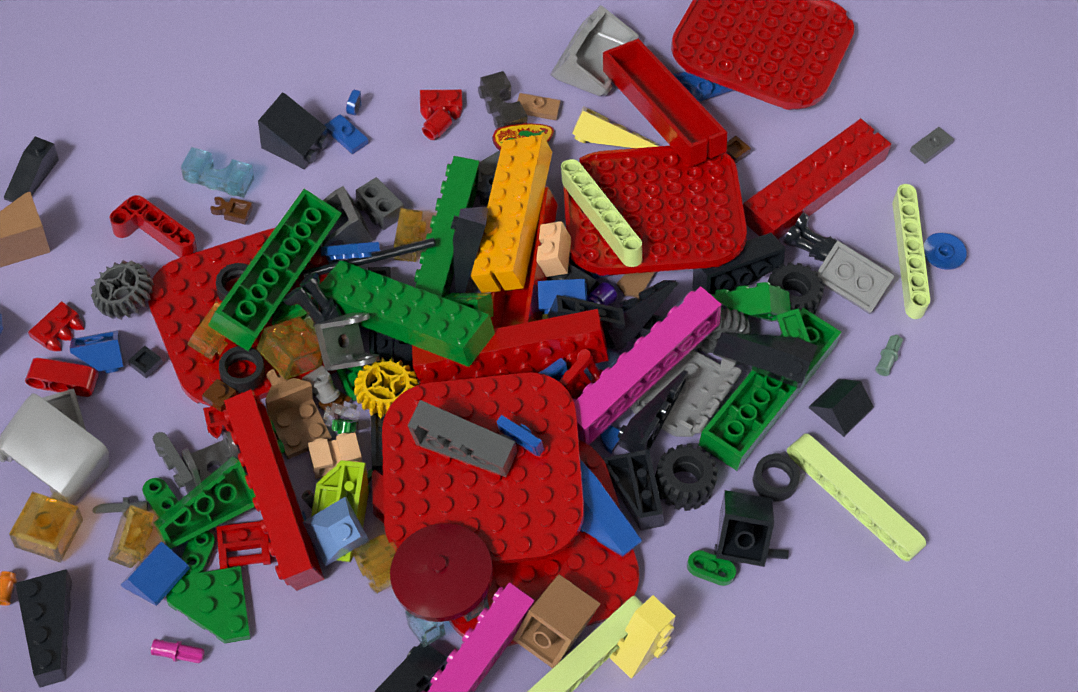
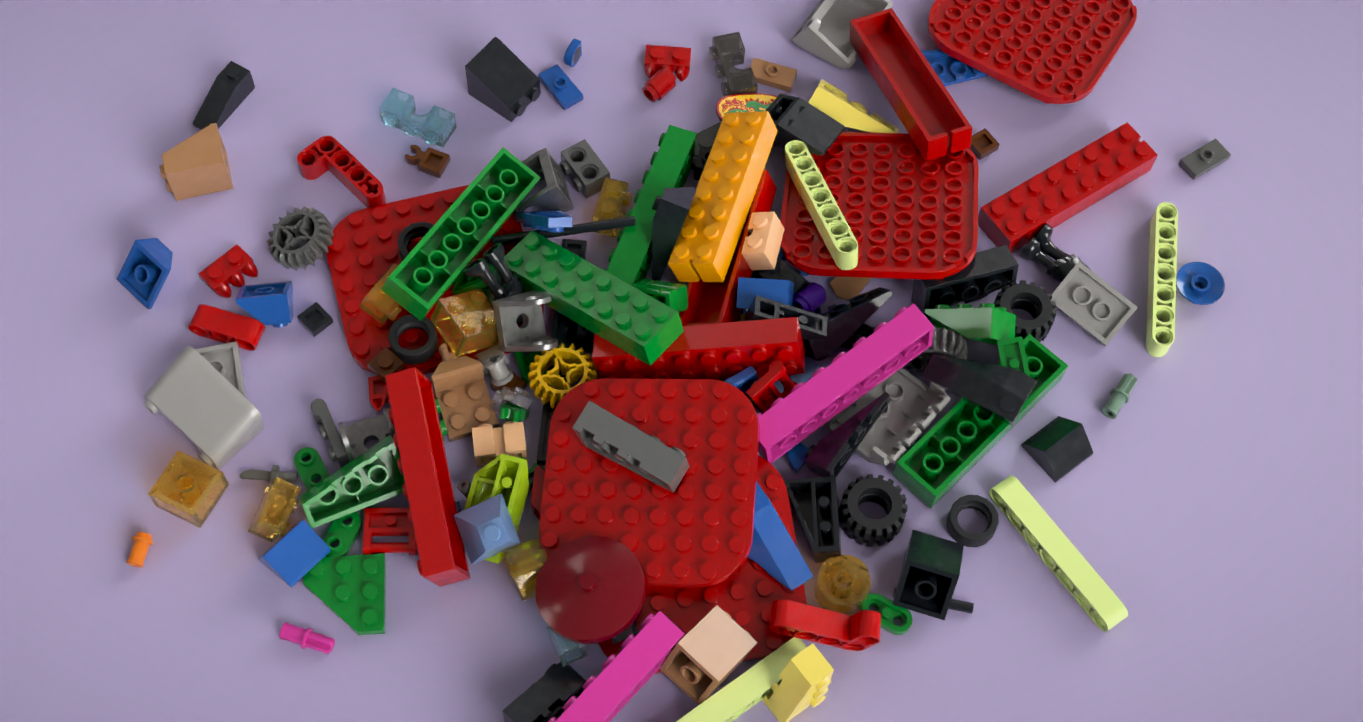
camera: 10 degrees right, 5 degrees up
(45, 618) = (175, 594): black wedge -> none
(521, 435) = (694, 449): blue plate -> none
(574, 143) = (803, 122): none -> black slope
(665, 584) = (825, 626): none -> red beam
(668, 546) = (839, 571): none -> clear yellow brick

